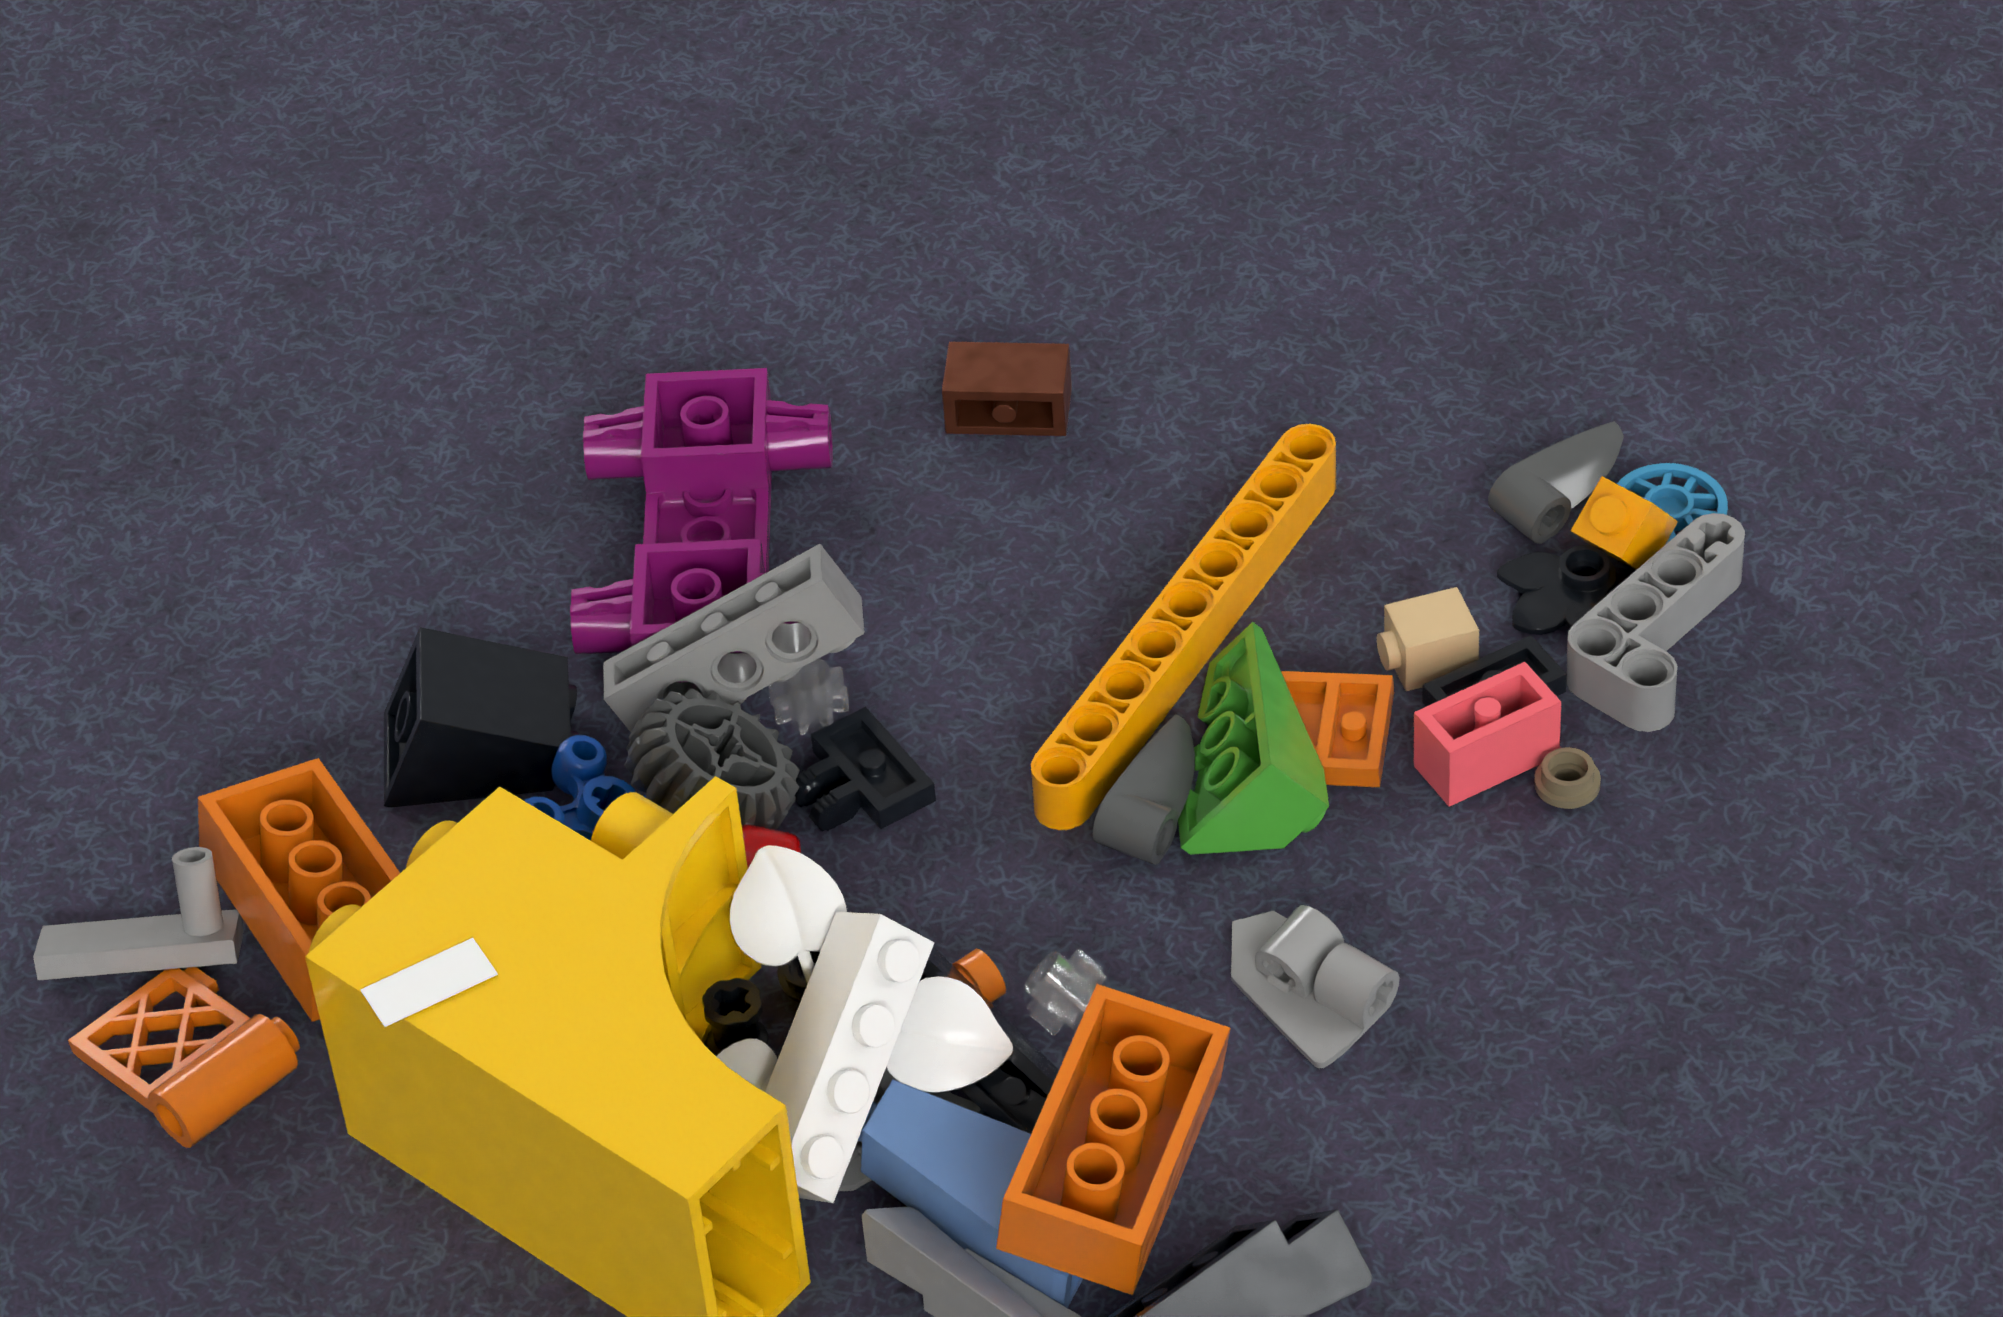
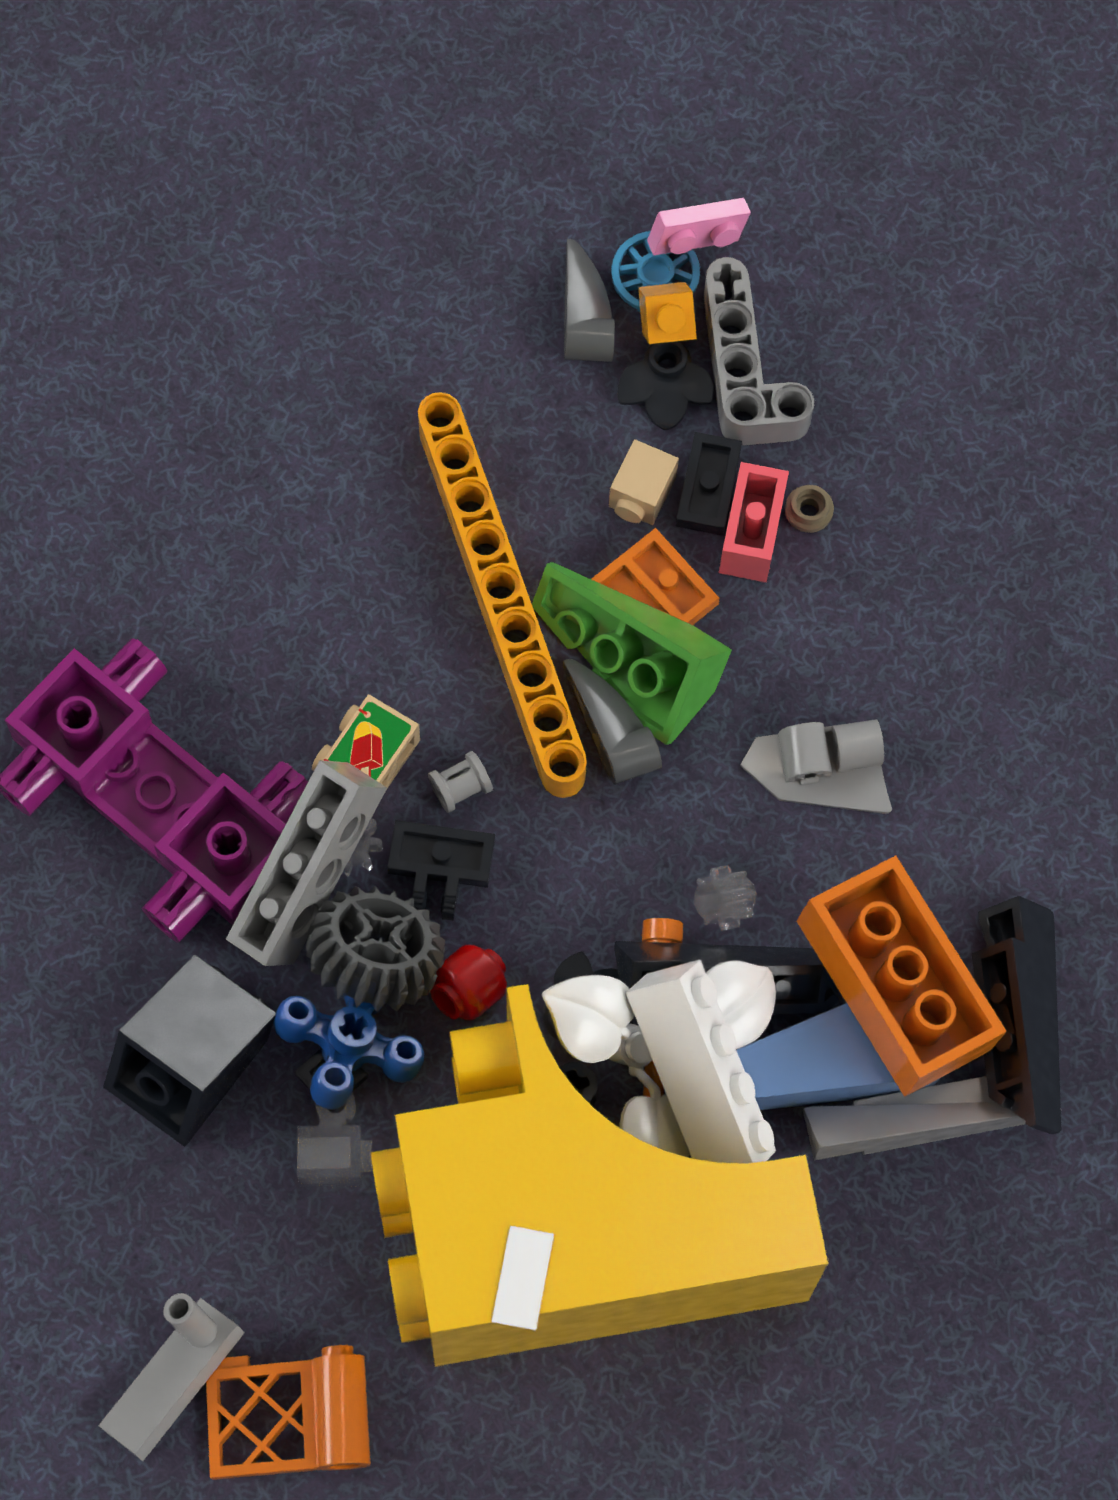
camera: 55 degrees left, 25 degrees up
(289, 858) = (247, 1246): orange brick -> none
(912, 649) = (373, 740): none -> brick
(961, 728) = (460, 781): none -> light grey bush
(1007, 388) = (203, 522): copper brick -> none
(1745, 486) = (698, 227): none -> bright pink plate

